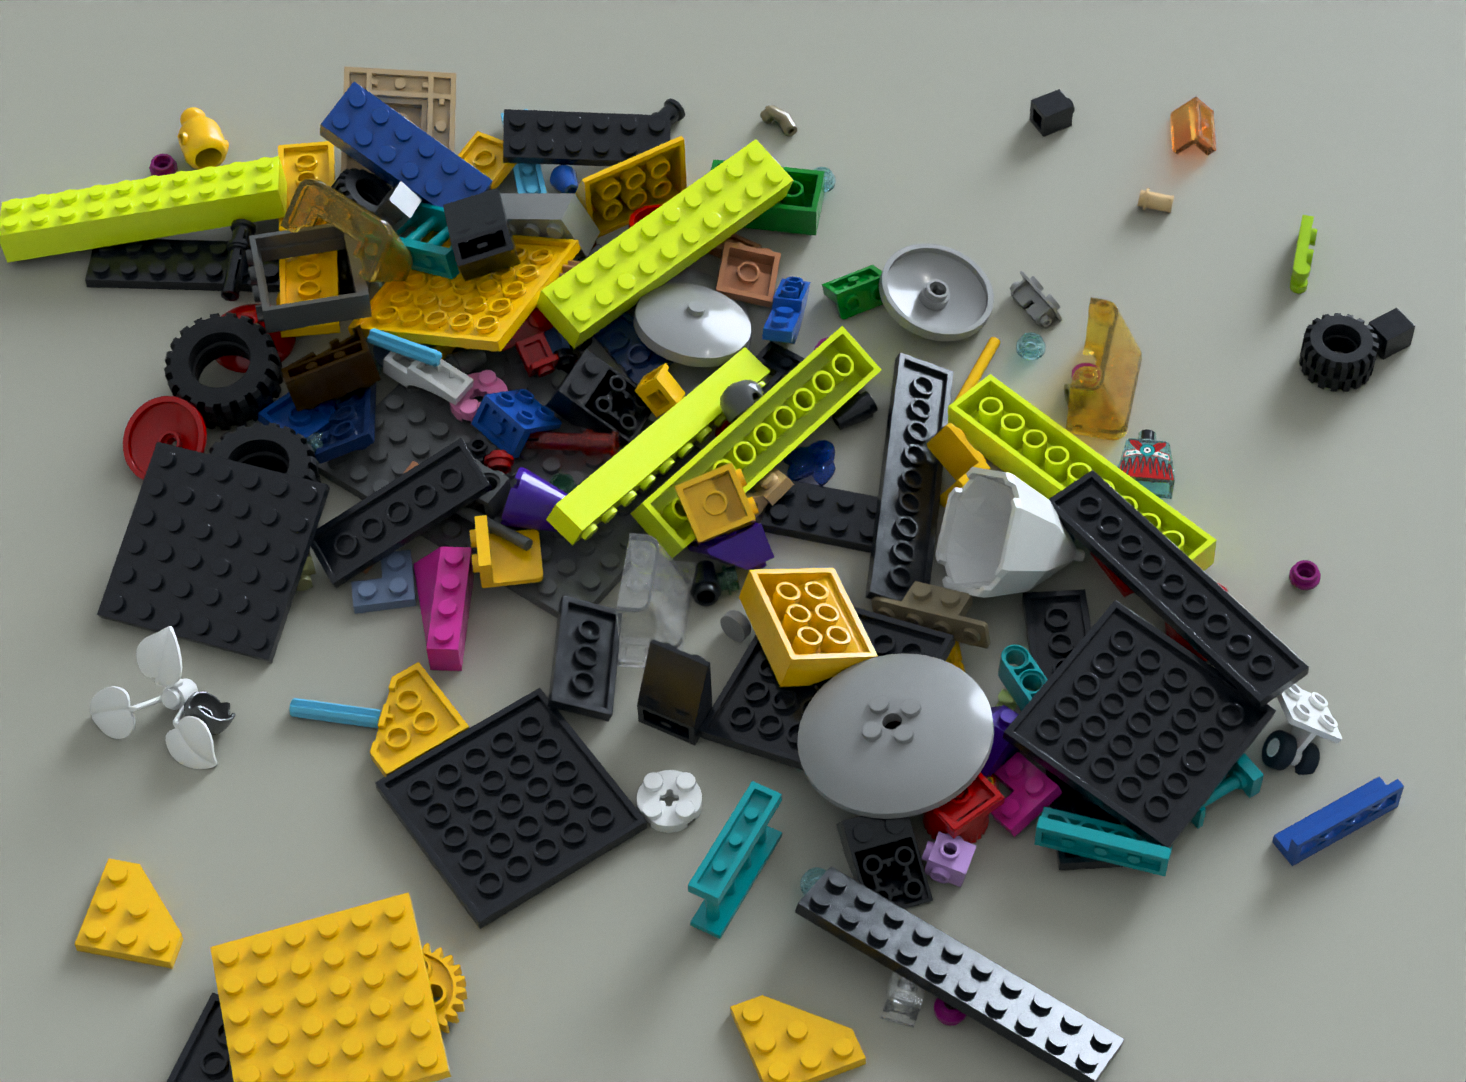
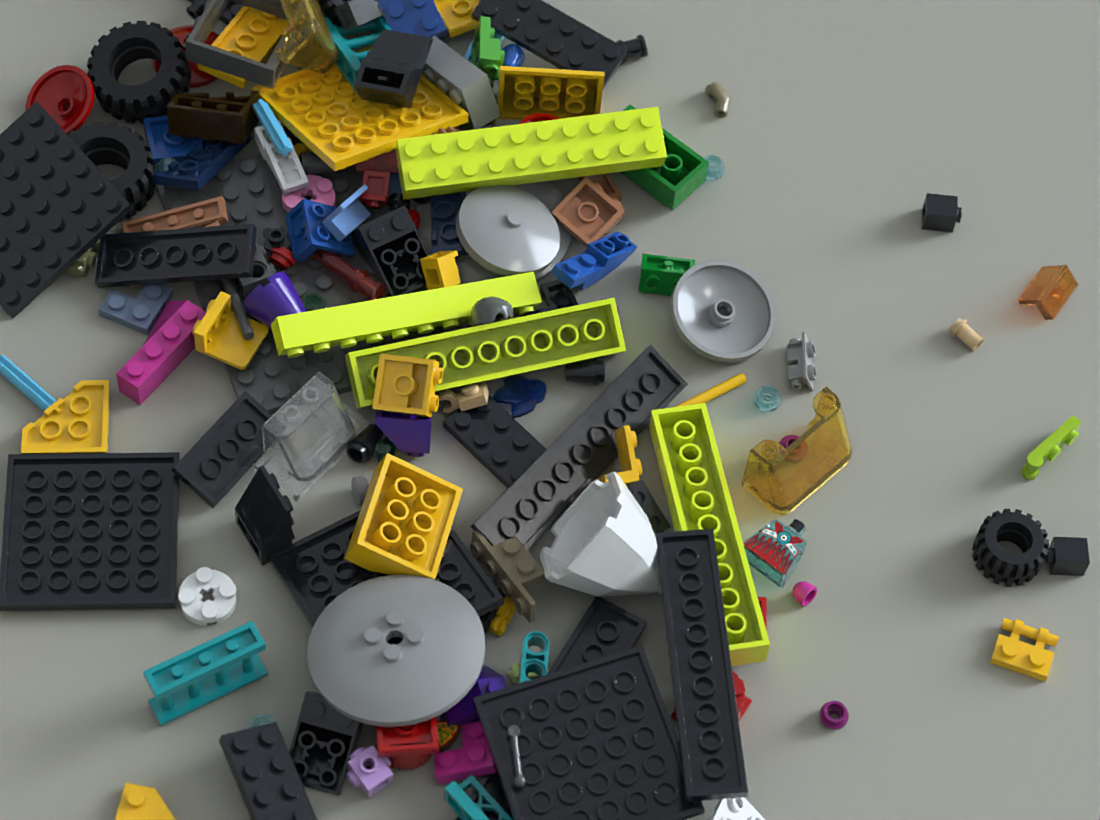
camera: 25 degrees right, 5 degrees up
(377, 474) = (188, 216): none -> nougat tile
(534, 390) = (347, 216): none -> medium blue panel
(544, 176) = (486, 50): none -> bright green plate
(1063, 741) = (513, 733): none -> dark grey hinge
(1195, 489) = (804, 592): none -> dark pink hinge
(1415, 438) = (1021, 656): none -> yellow plate

